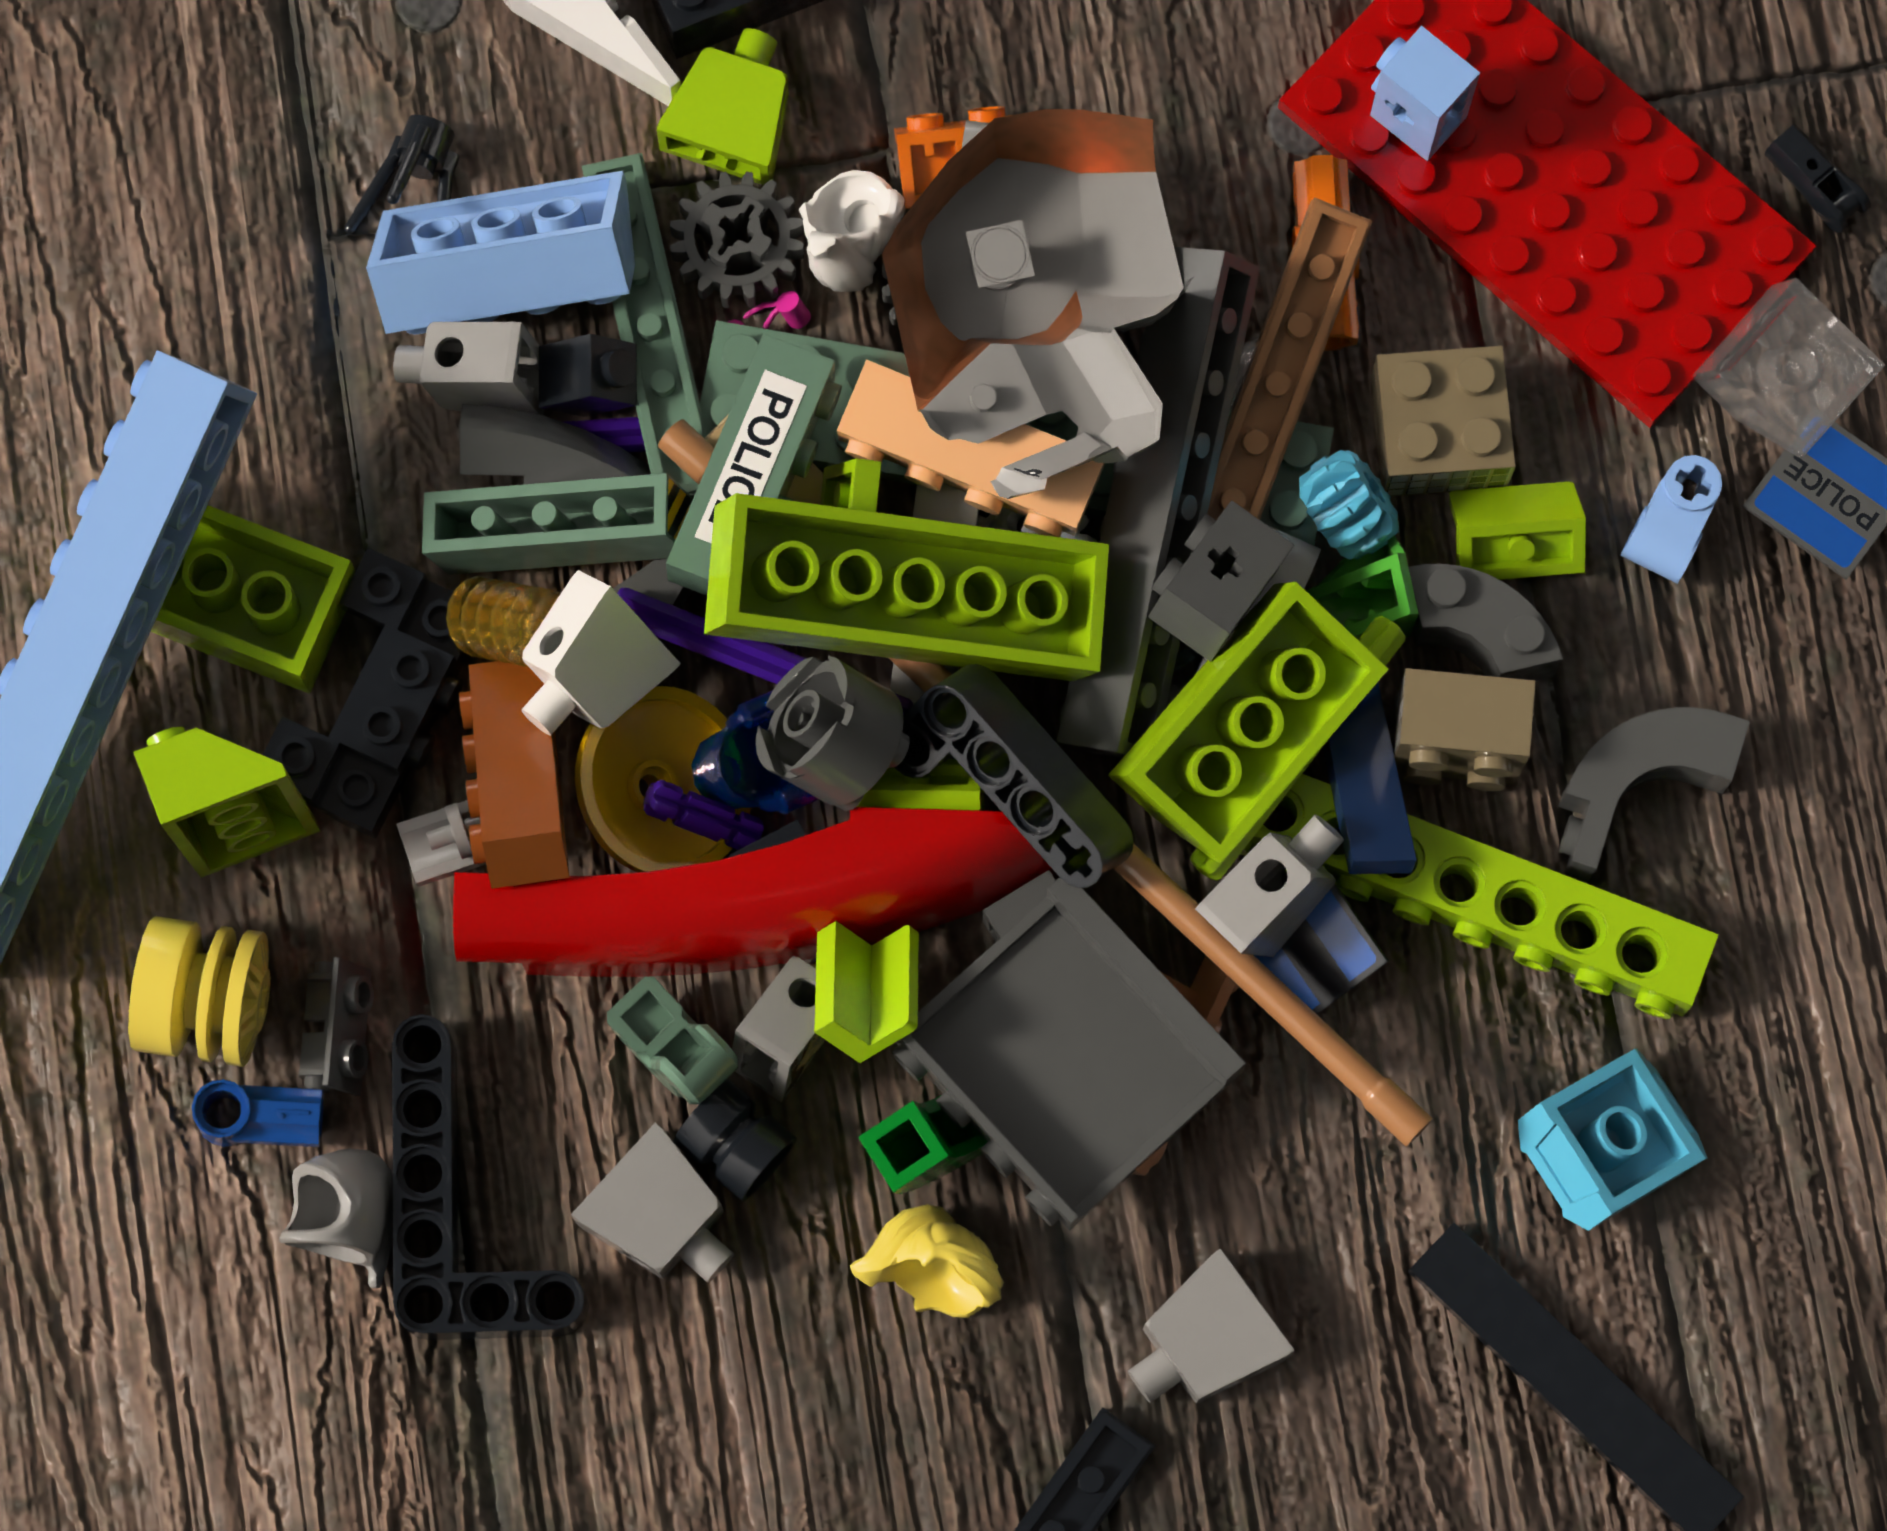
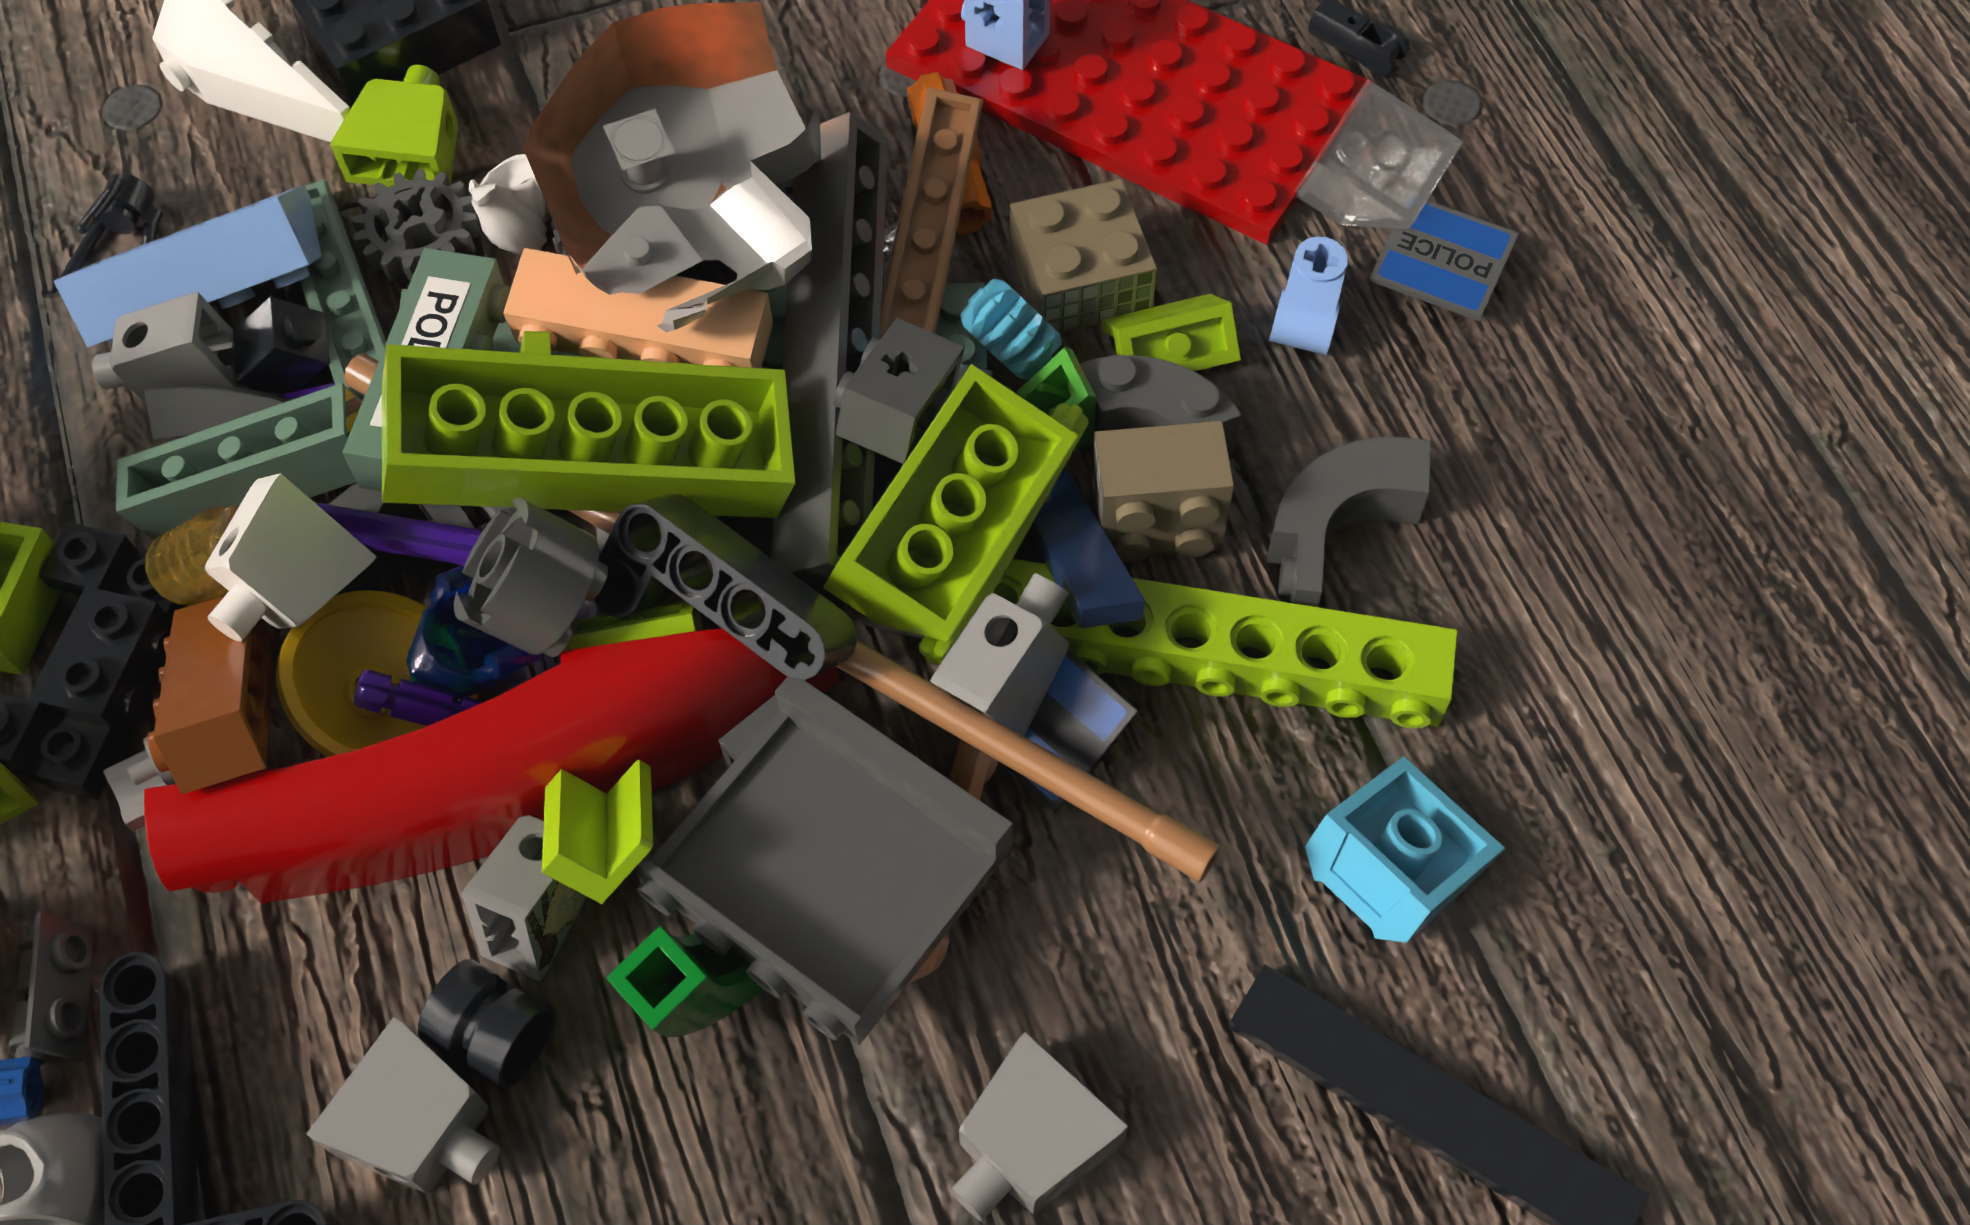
camera: 10 degrees left, 15 degrees down
(673, 1047) = (405, 932): sand green animal -> none
(933, 1262) = (718, 1112): light yellow hair -> none

